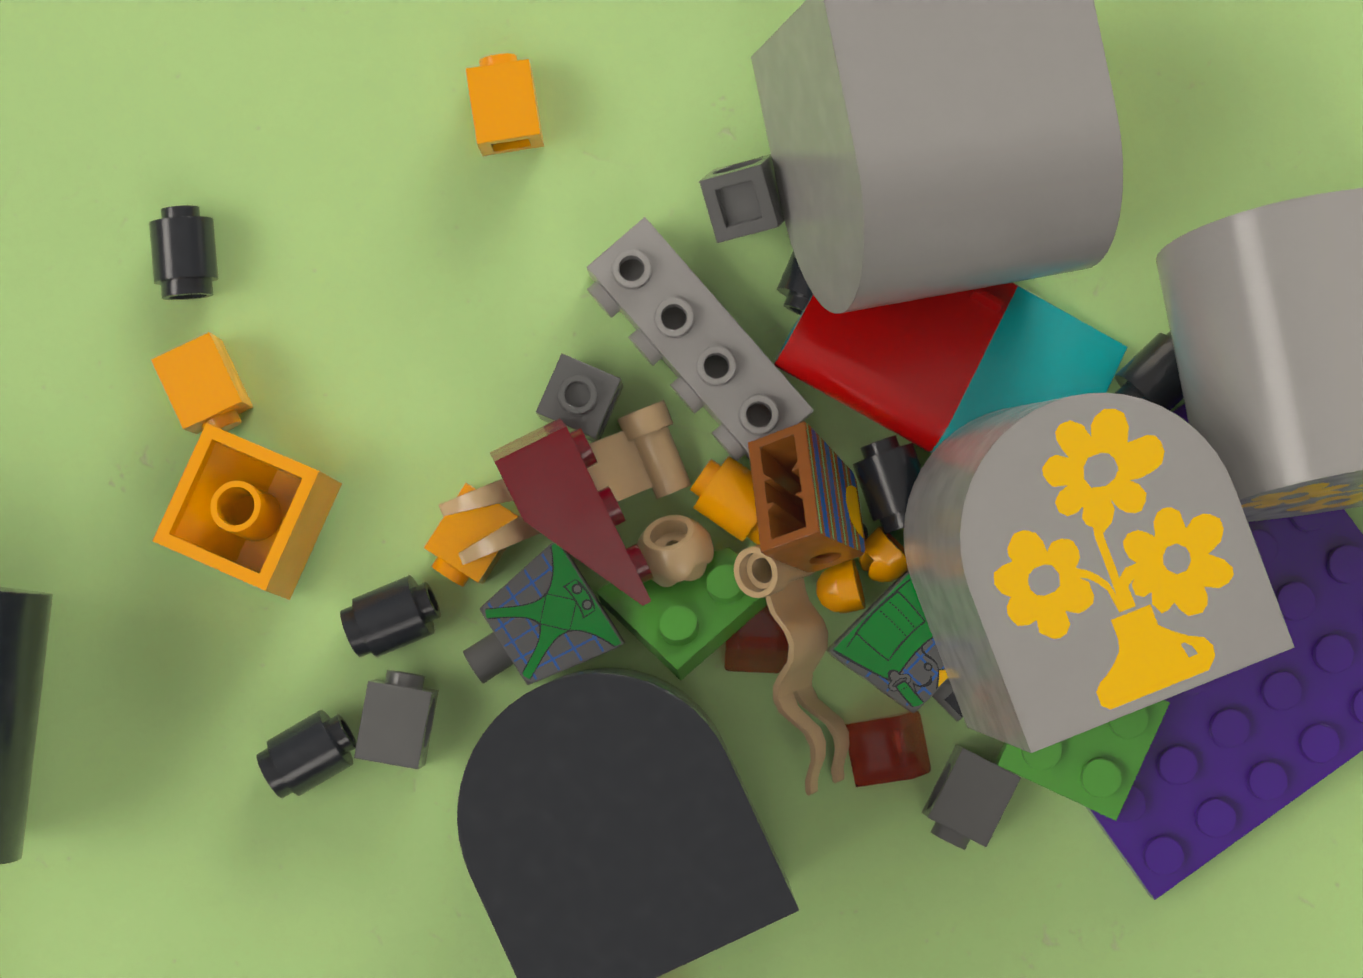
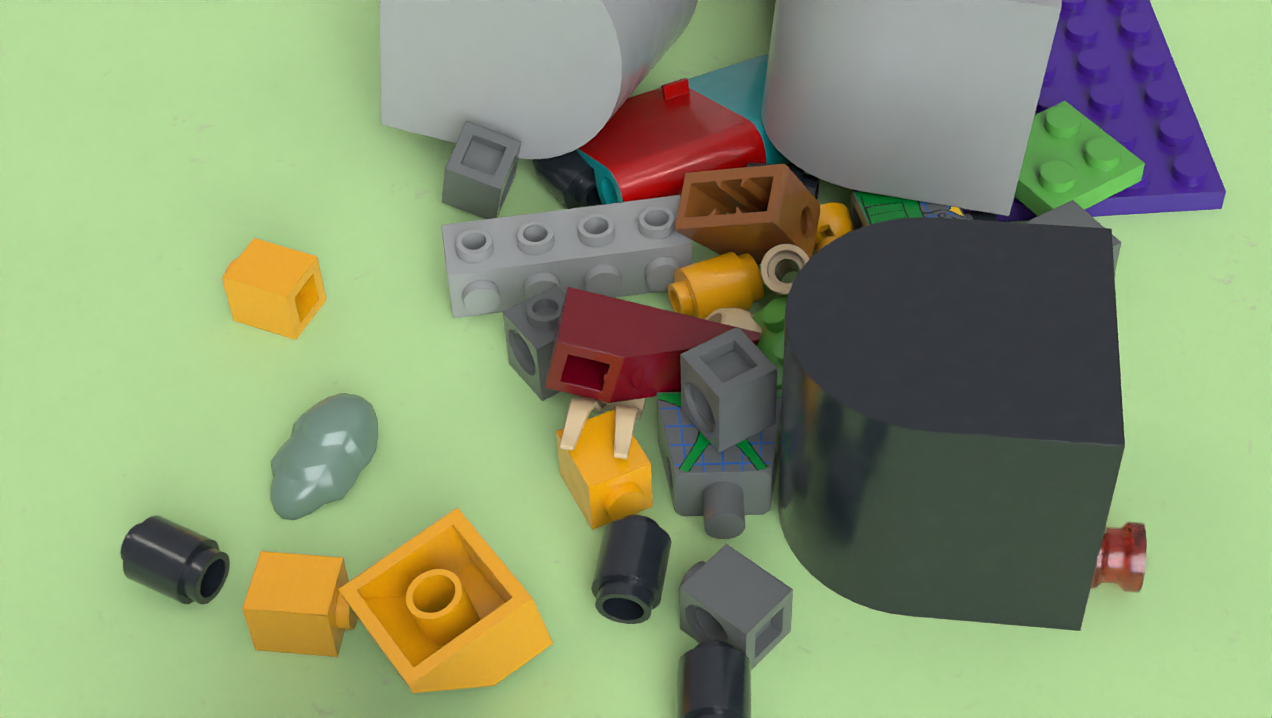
camera: 60 degrees left, 40 degrees down
(364, 285) = (323, 455): none -> sand green arm
(552, 621) = (728, 388): none -> dark grey brick

